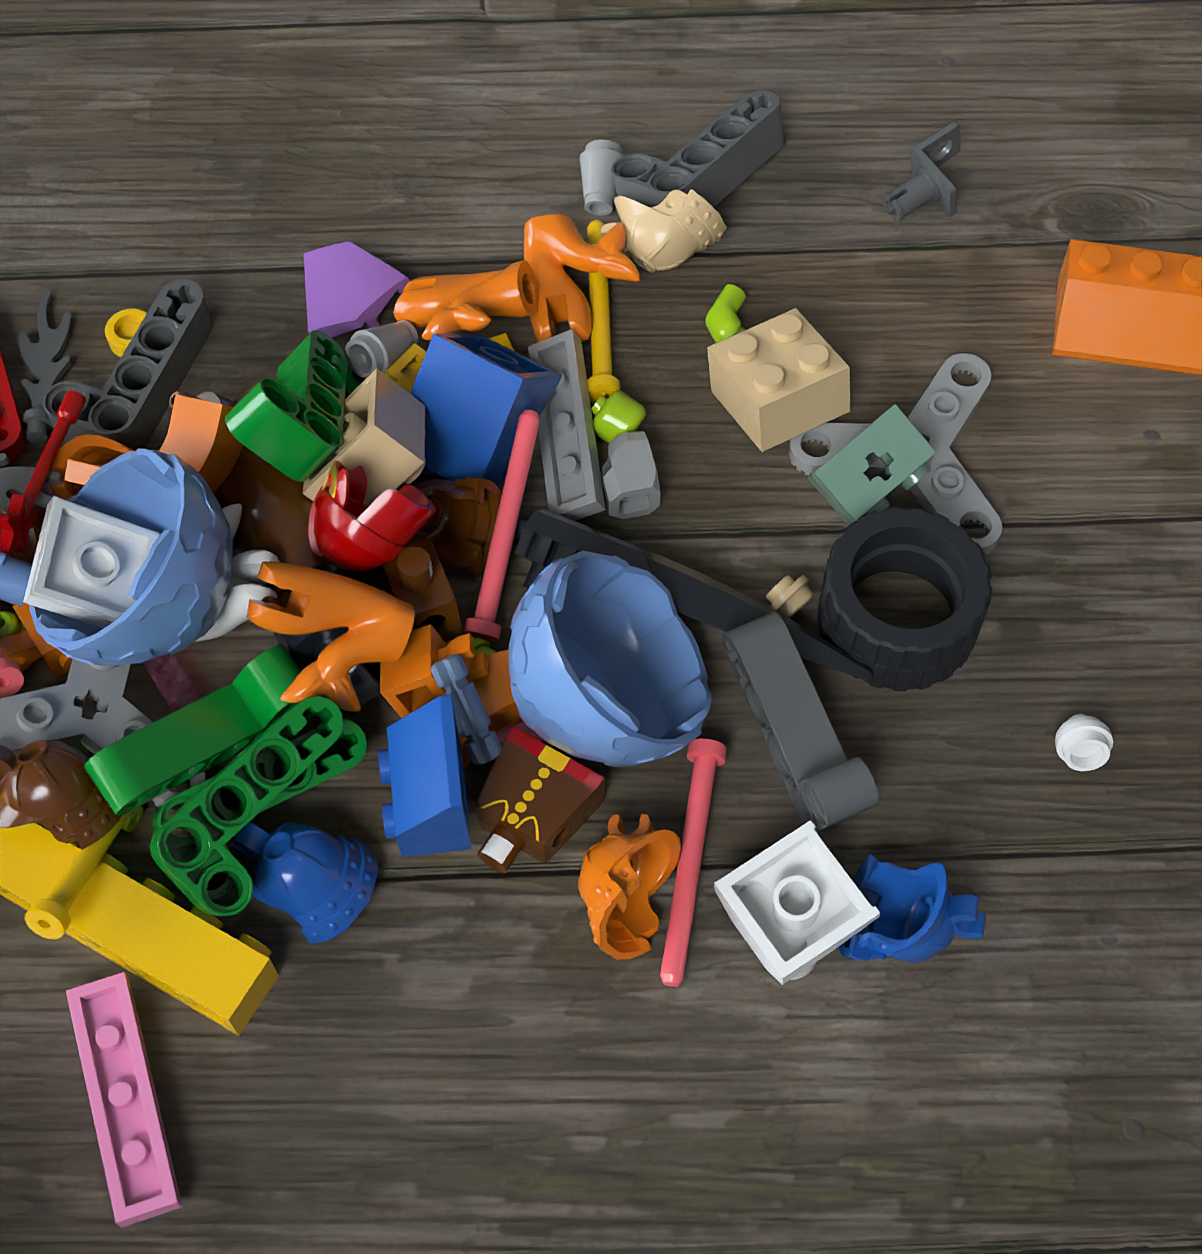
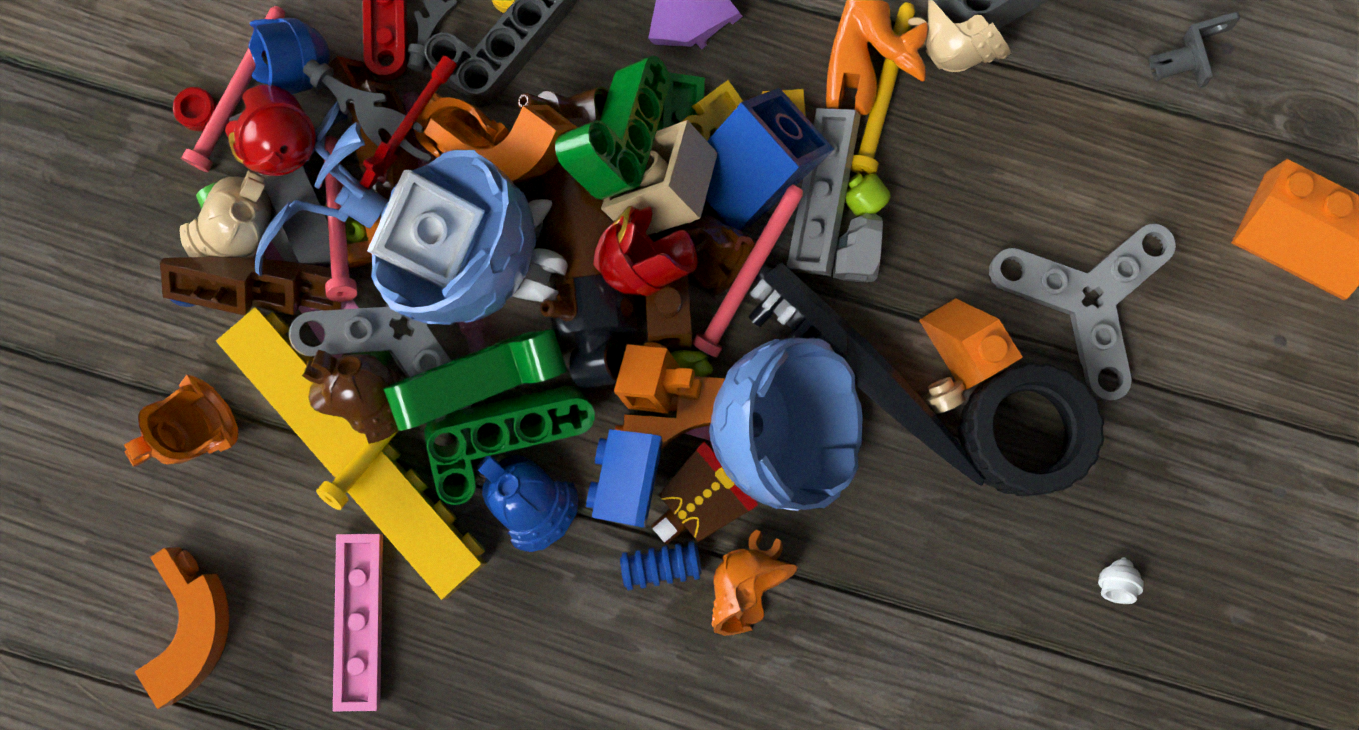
camera: 15 degrees right, 20 degrees up
(253, 795) = (502, 449): green beam -> none
(325, 601) = (625, 339): orange piece -> none
(379, 347) = (698, 78): light grey cone -> none
(468, 300) = (783, 57): orange piece -> none
(468, 707) = (673, 424): sand blue axle -> none
(506, 899) = (660, 565): none -> blue piece
(706, 756) = (800, 579): coral bar -> none
(722, 316) = (979, 133): lime arm -> none
(779, 379) = (1004, 207): tan brick -> none
(794, 904) = (864, 643): white slope -> none
(796, 726) = (911, 506): dark grey beam -> none
(797, 524) = (970, 341): none -> orange slope
(892, 441) = (1071, 304): sand green brick -> none
(915, 913) = (934, 674): blue helmet -> none

